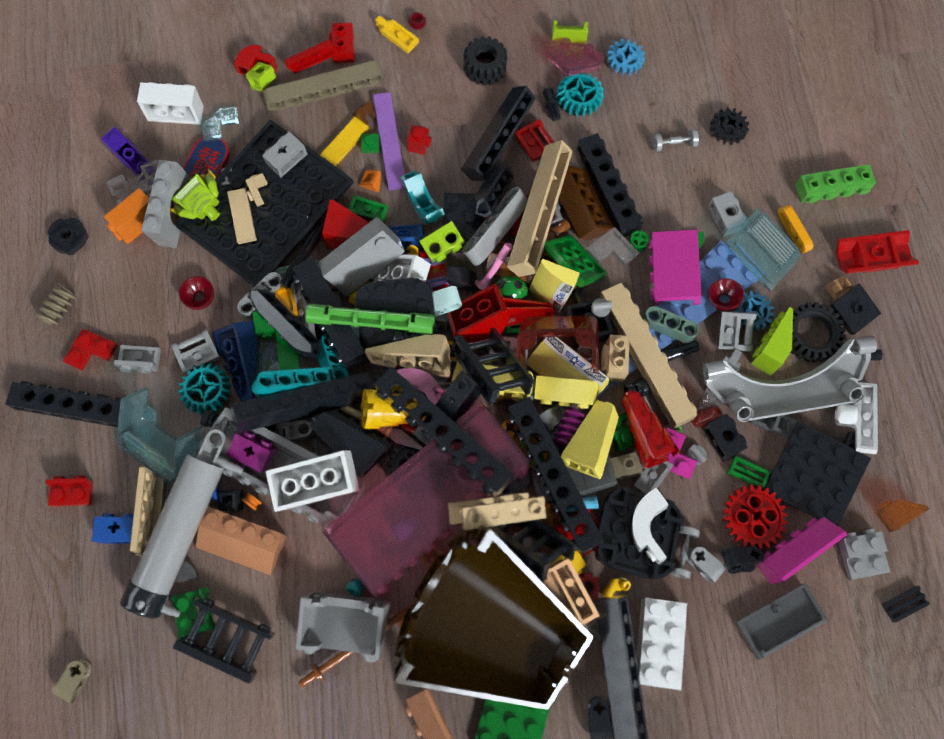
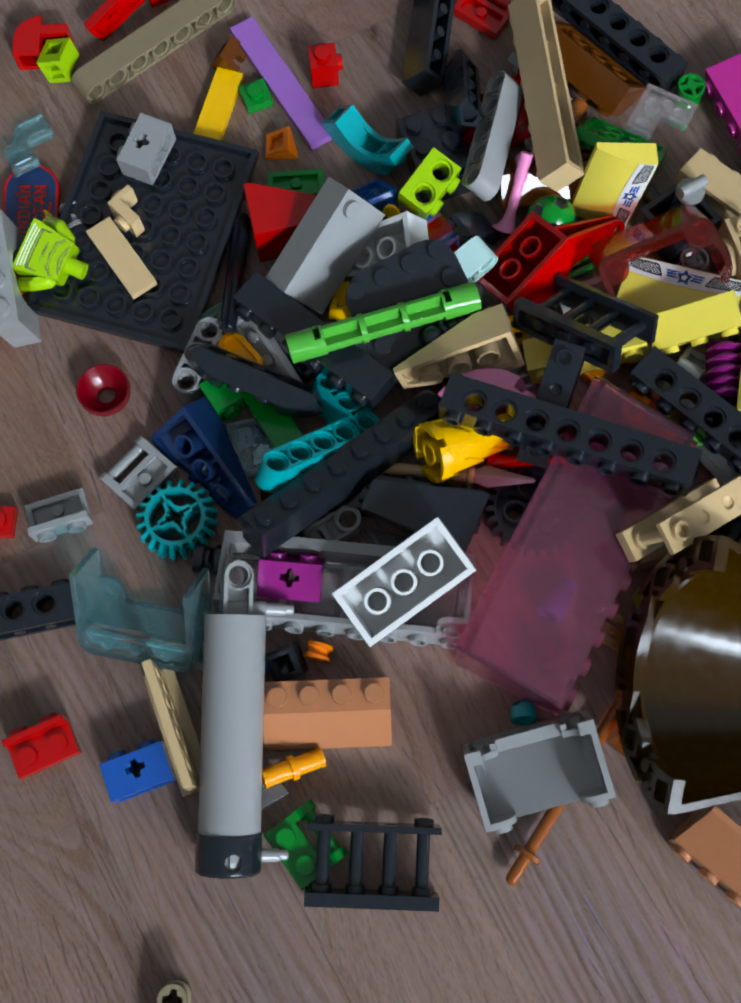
camera: 15 degrees left, 0 degrees up
(205, 564) = (293, 767): none -> light orange pin

